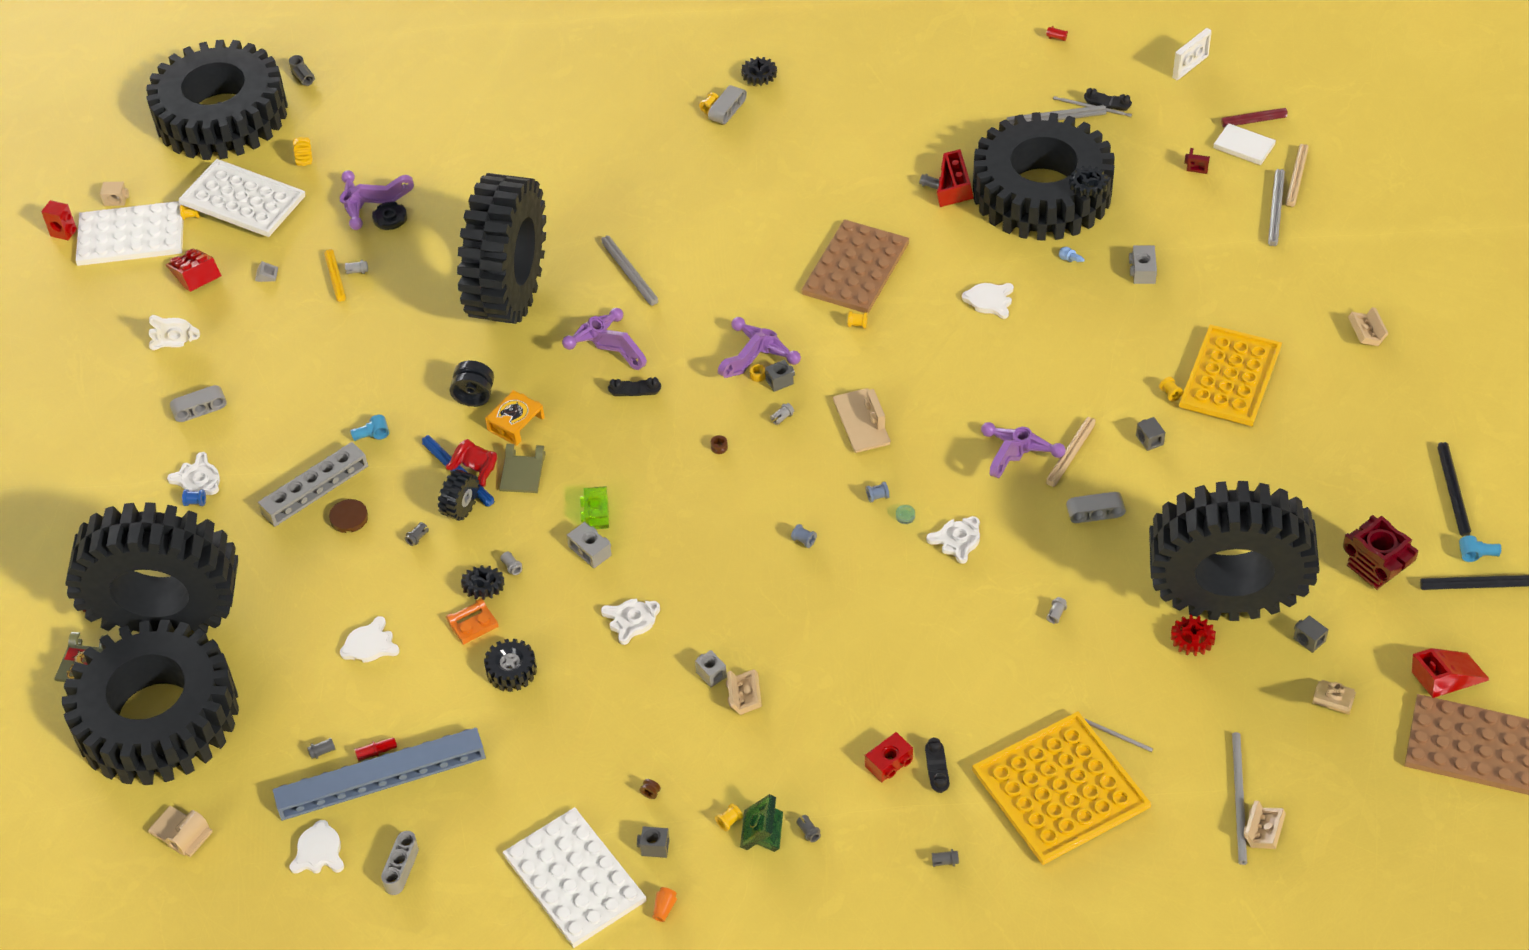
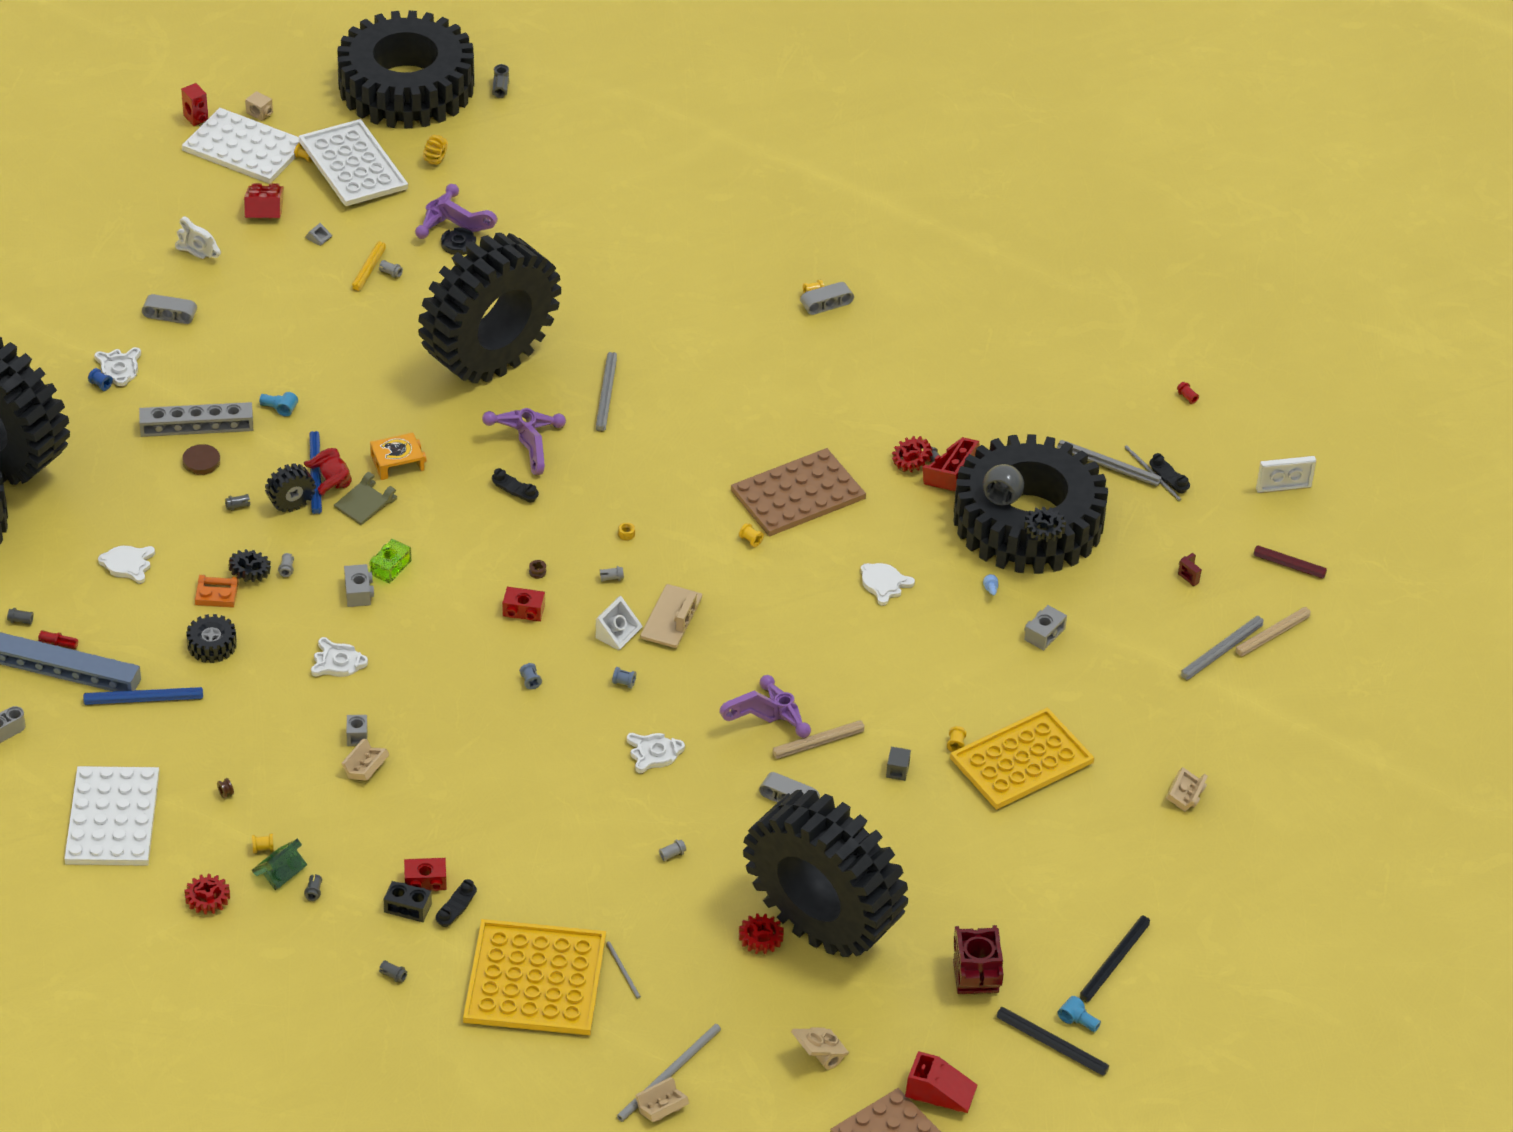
camera: 30 degrees right, 5 degrees down
(472, 383) = (385, 409): black wheel -> none
(497, 752) = (143, 695): none -> blue axle
(656, 849) = (191, 826): dark grey brick -> none
(664, 903) = (157, 871): orange cone -> none
(727, 893) = (207, 894): none -> red gear
(739, 479) = (523, 603): none -> red brick
(759, 71) = (884, 284): black gear -> none
(760, 341) = (650, 505): medium lavender piece -> none
(779, 375) = (639, 542): dark grey brick -> none
(831, 453) = (617, 624): none -> white slope
(899, 793) = (407, 901): none -> black brick
(905, 514) = (631, 708): clear light blue tile -> none
(914, 187) = (912, 454): none -> red gear
(1032, 168) = (1003, 484): none -> dark grey wheel
(1244, 144) = (1255, 579): white tile -> none
(1310, 633) = (859, 990): dark grey brick -> none

